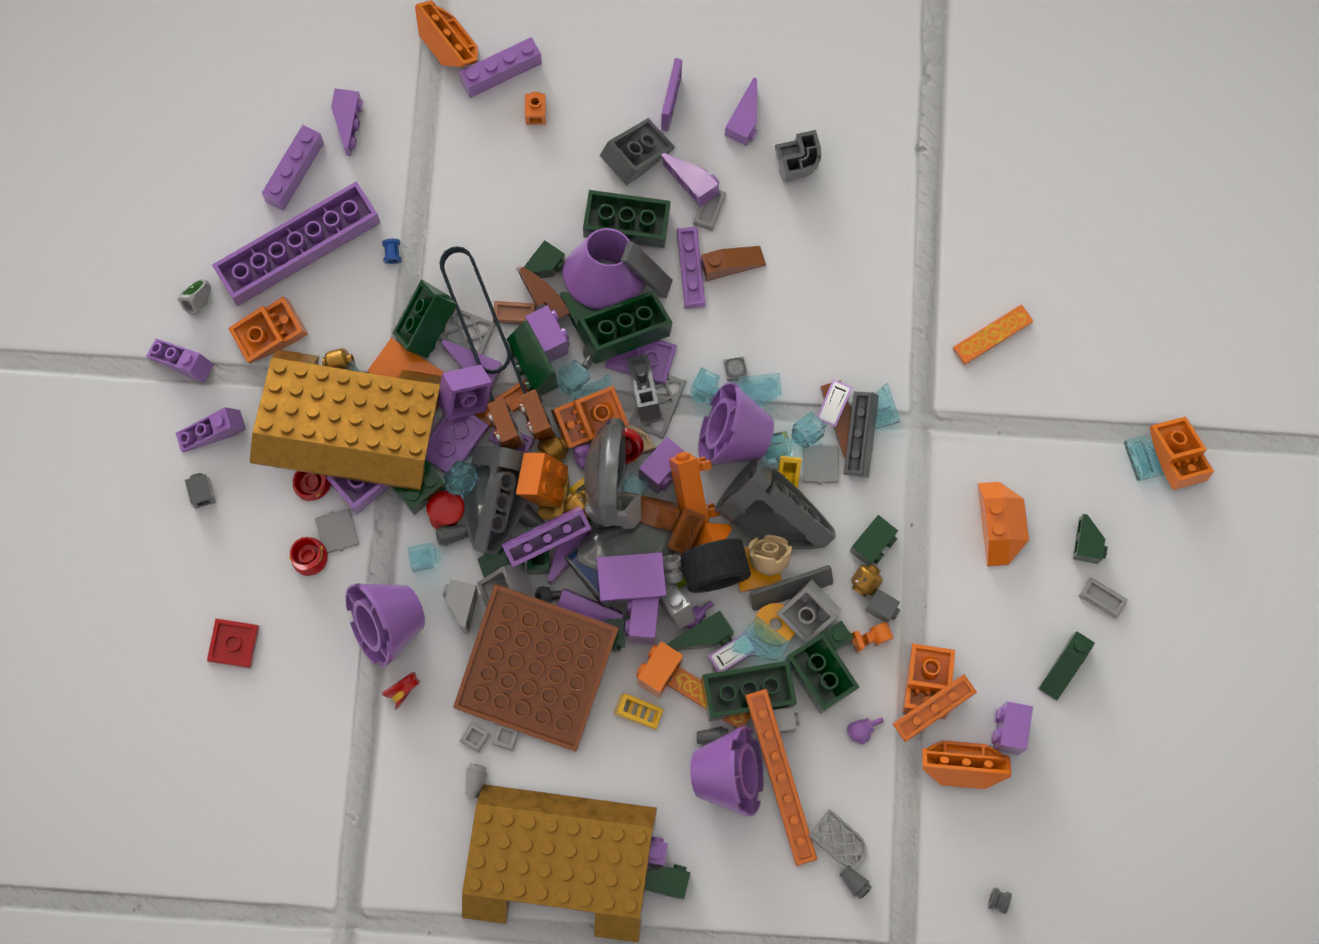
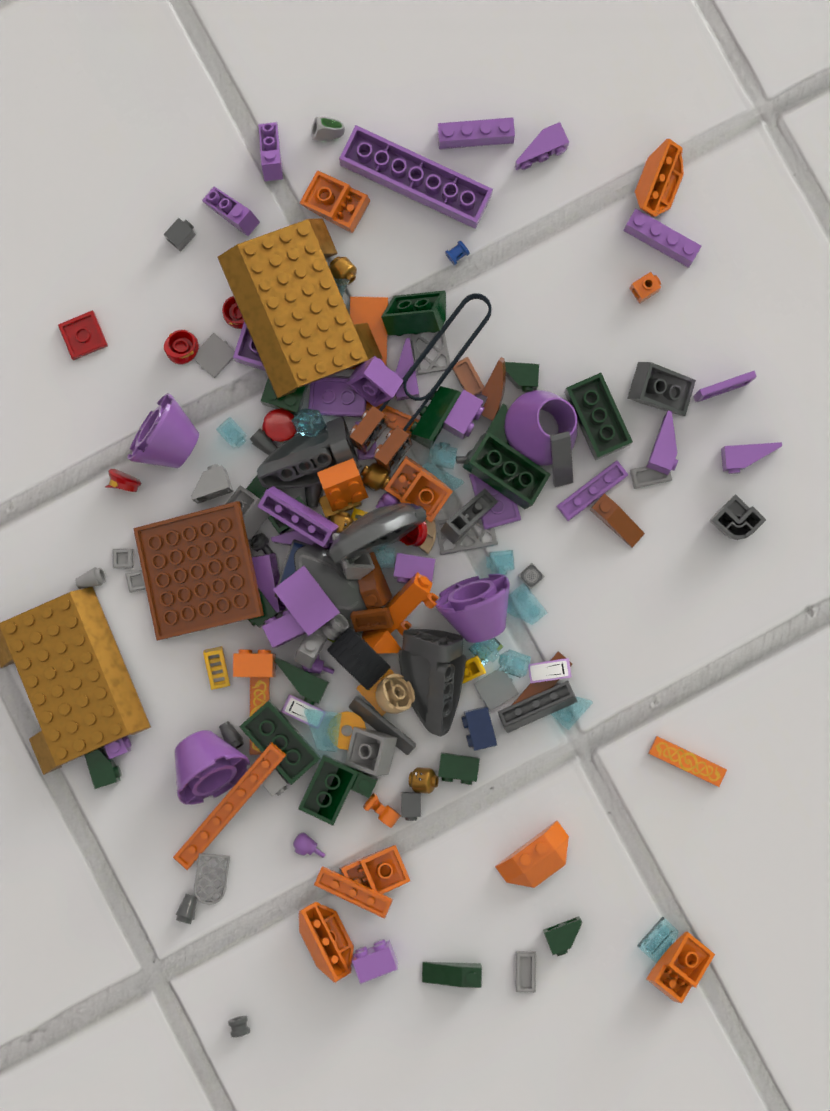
camera: 60 degrees right, 10 degrees up
(849, 497) = (480, 728): none -> dark blue brick

